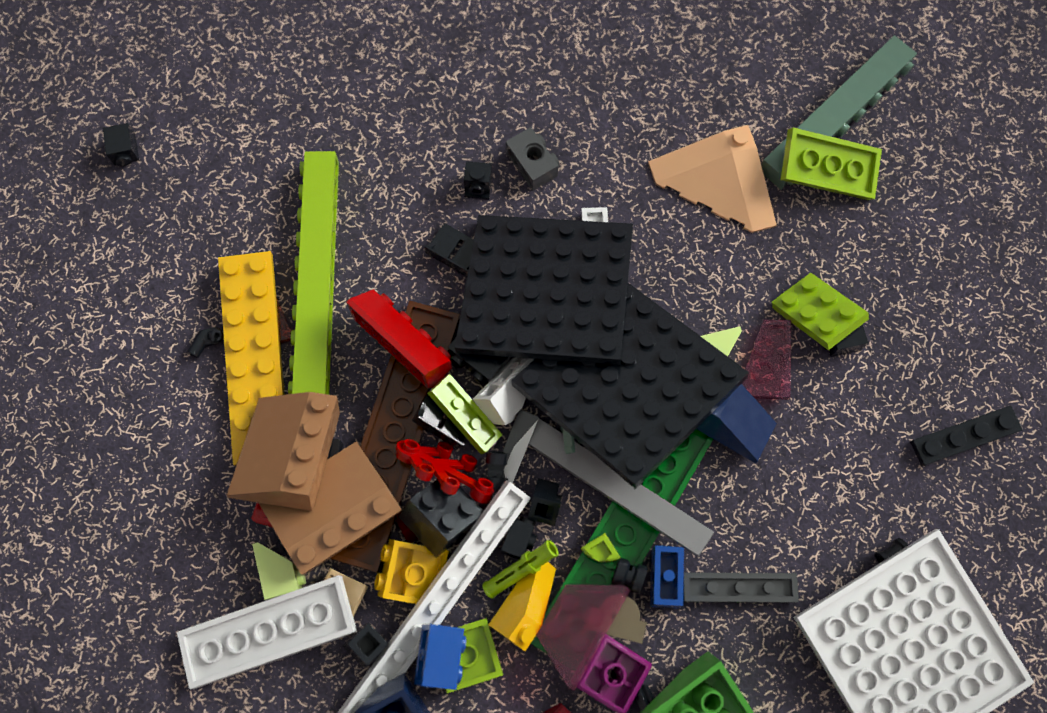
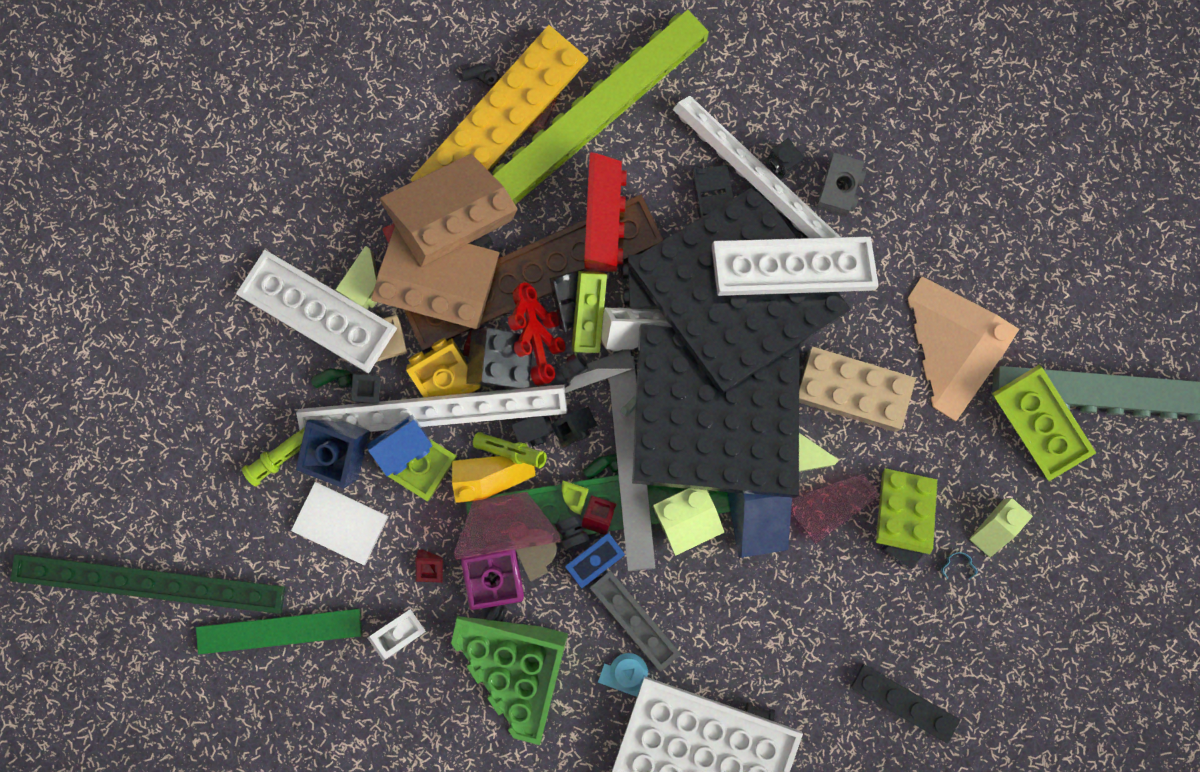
camera: 50 degrees right, 10 degrees up
(328, 667) = (330, 375): none -> dark green arm
(461, 208) = (753, 170): none -> white plate
(566, 234) = (794, 266): none -> white plate
(591, 508) = (600, 464): none -> dark green arm
(632, 543) = (598, 515): none -> dark red slope
(693, 475) = (688, 519): none -> yellowish green slope
(695, 271) = (855, 389): none -> tan brick
(776, 633) = (625, 673): none -> medium azure piece
(883, 256) = (1000, 526): none -> yellowish green slope
(892, 302) = (970, 560): none -> medium azure piece

